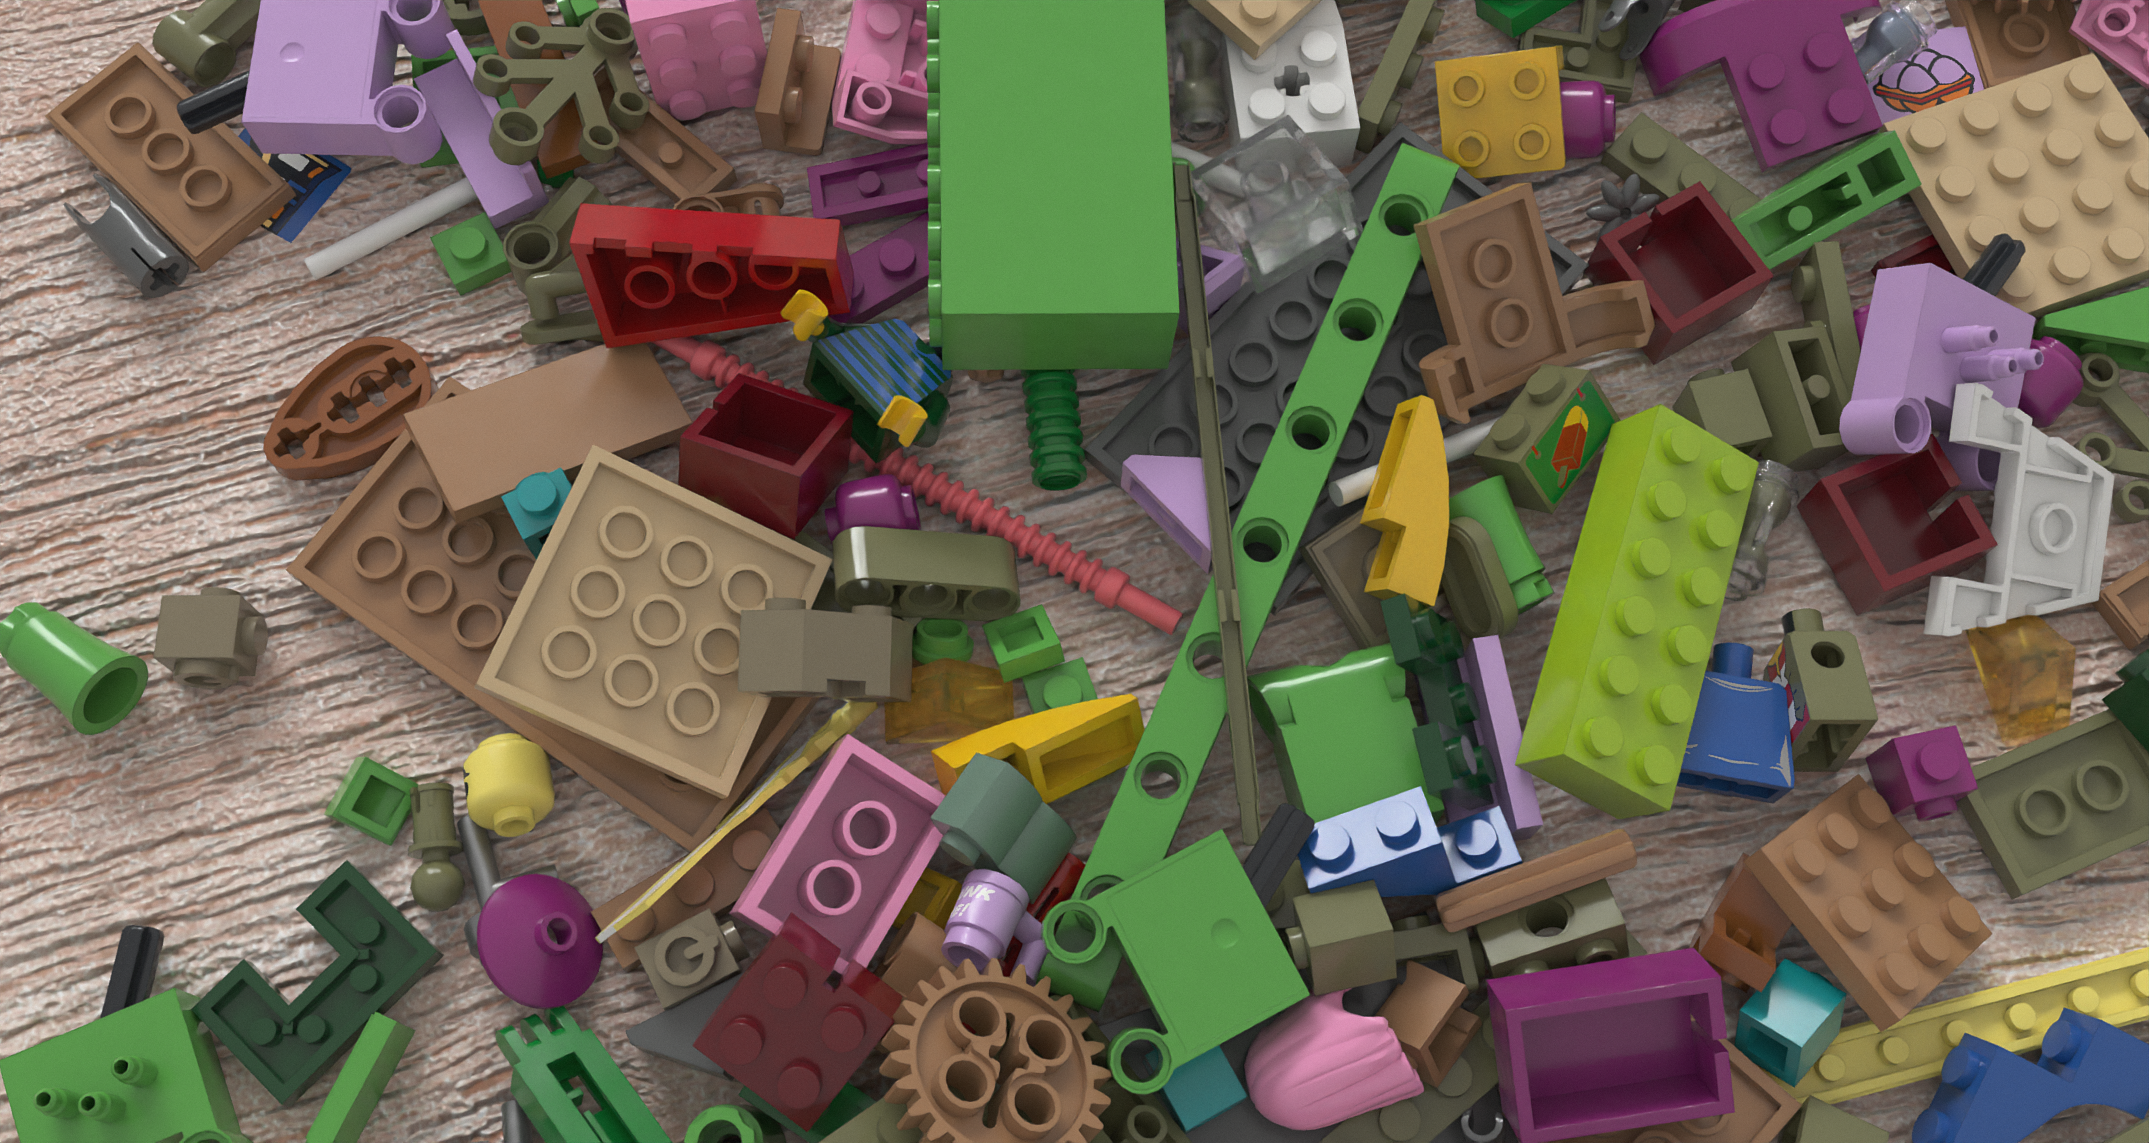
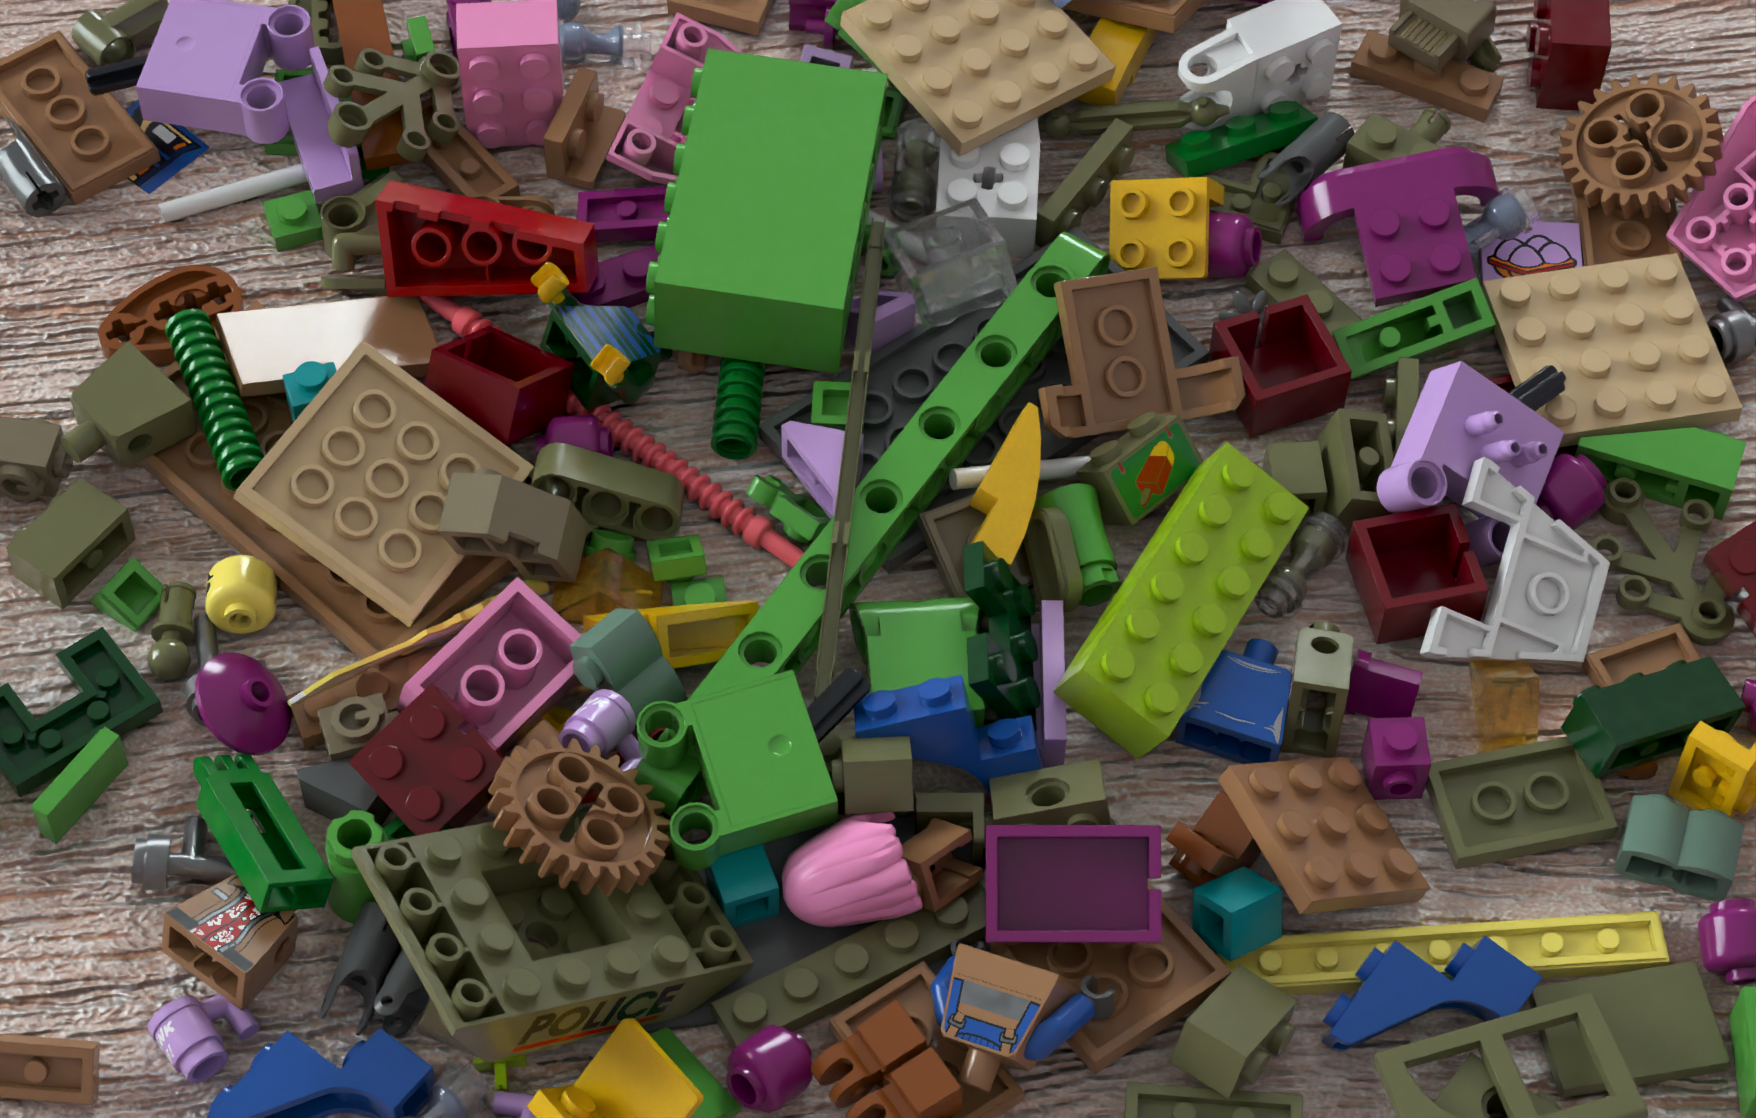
camera: 10 degrees right, 15 degrees down
(284, 746) = (70, 542): none -> olive brick
(317, 564) = (128, 411): none -> olive torso
(426, 529) = (214, 395): none -> green piece
(1149, 555) = (801, 516): none -> bright green plate
(1171, 419) = (830, 404): none -> bright green plate
(1536, 880) = (1044, 764): medium nougat axle -> none
(1897, 680) = (1381, 688): none -> magenta tile

